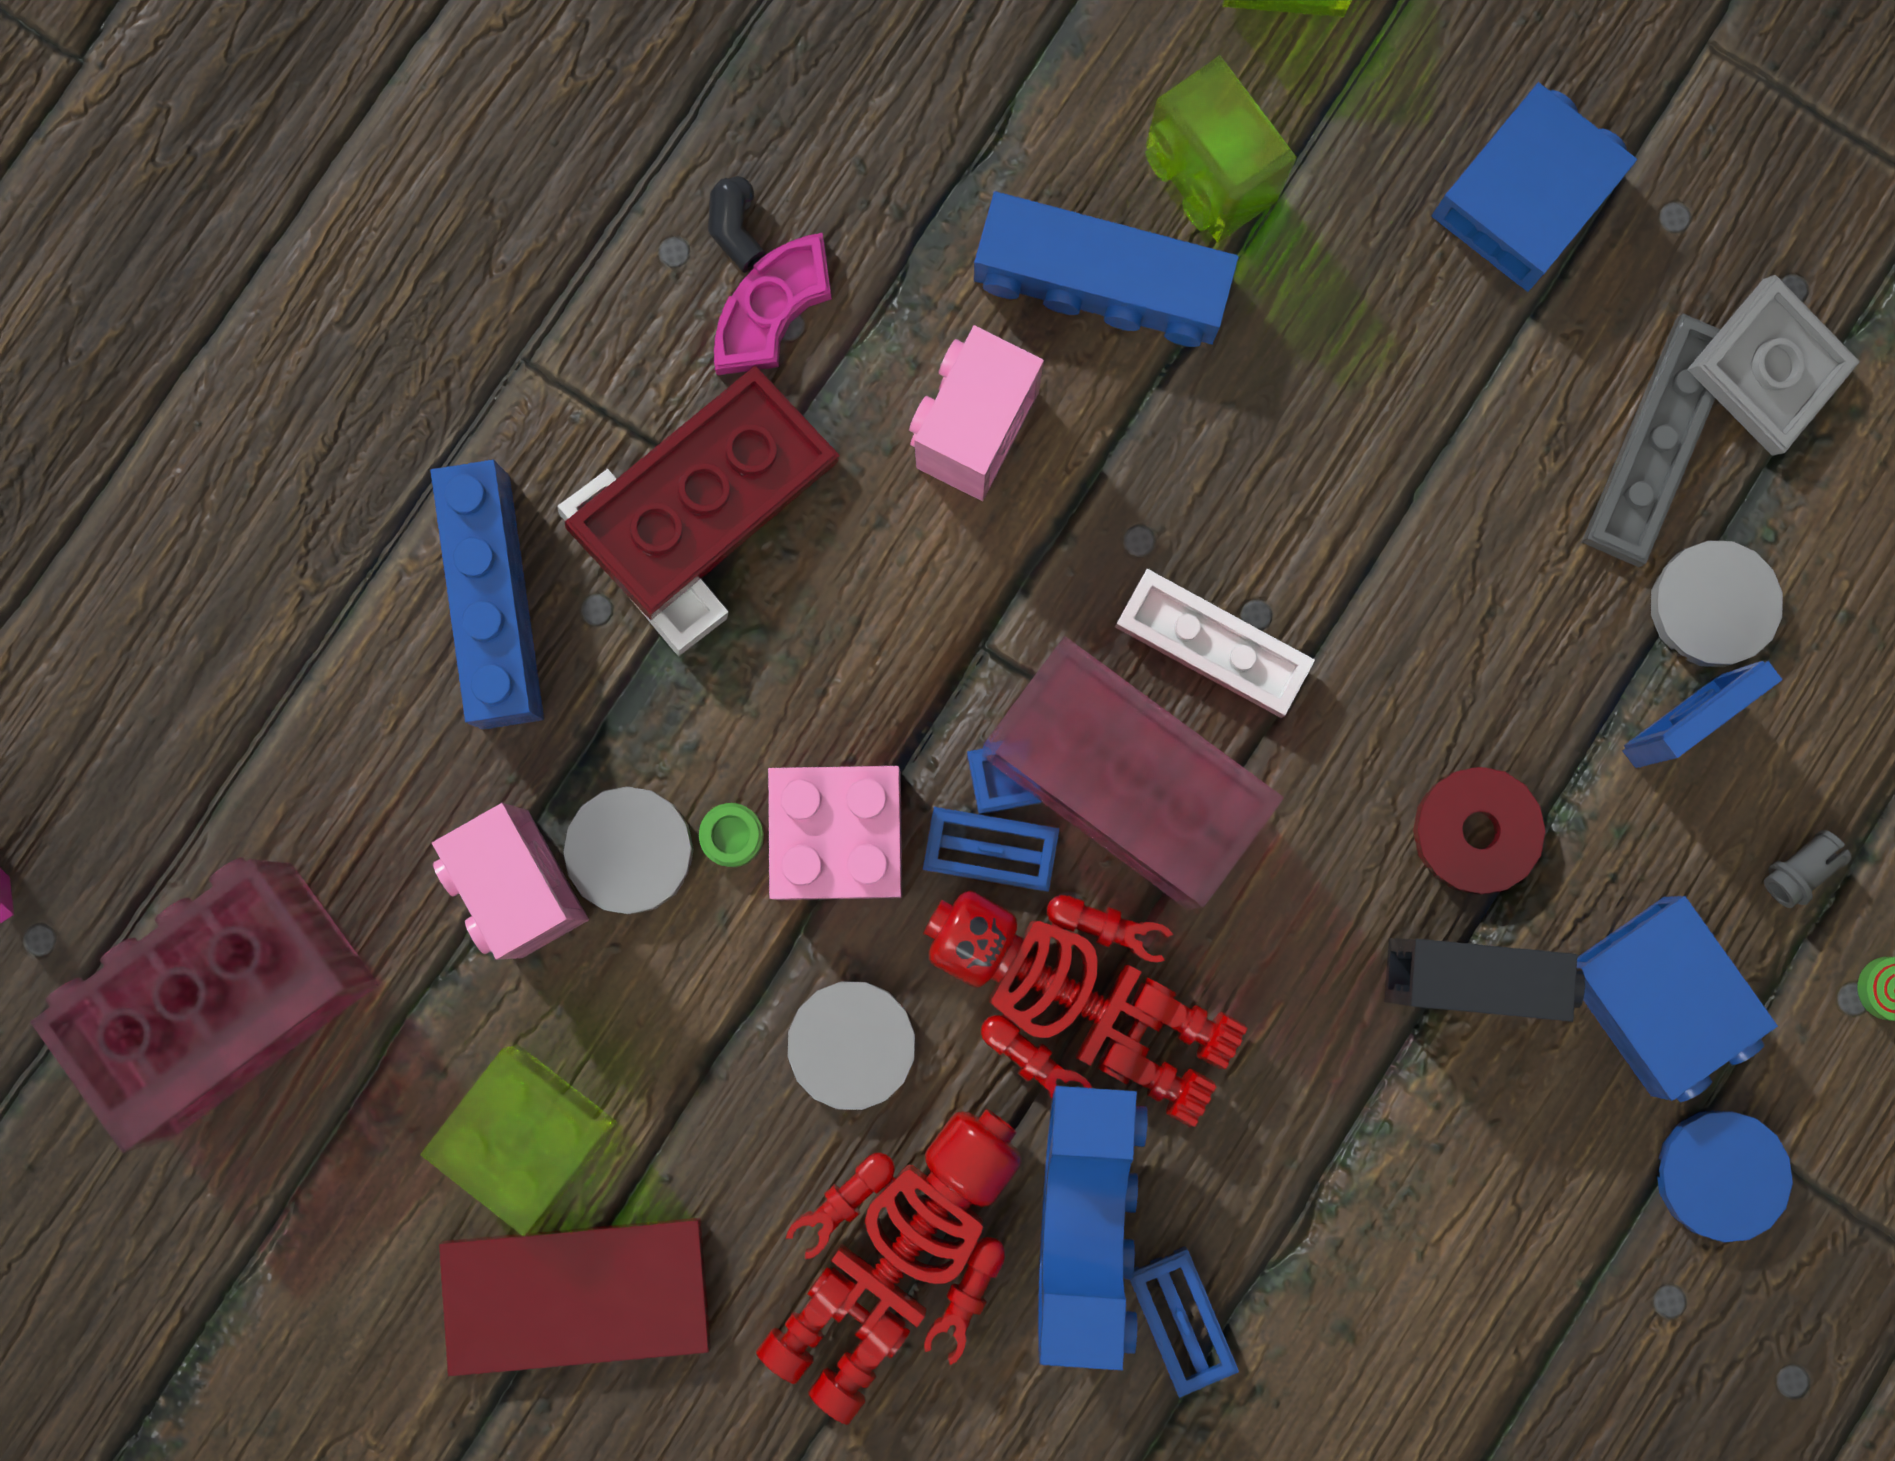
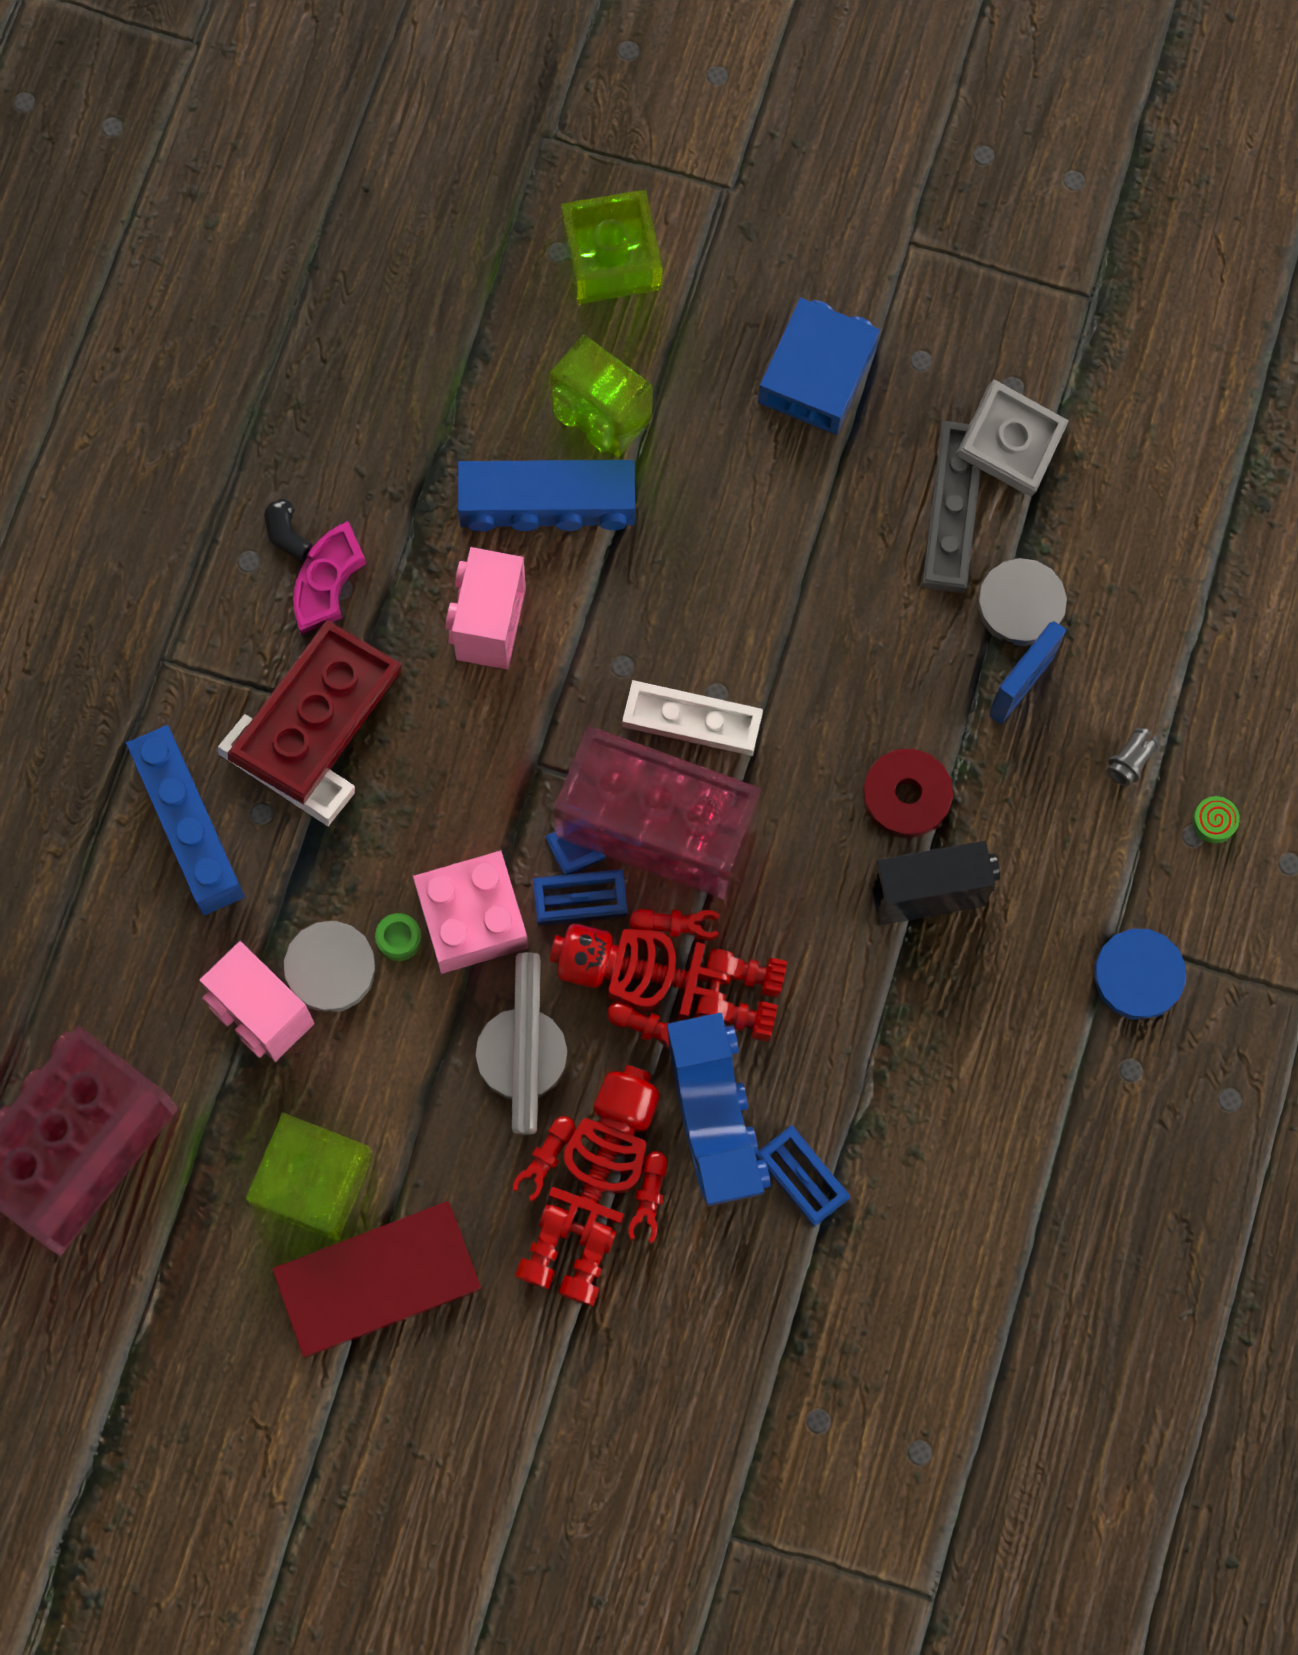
camera: 20 degrees left, 10 degrees down
(859, 1039) = (526, 1043): none -> light grey axle
(1672, 1000) = (1067, 866): blue brick -> none

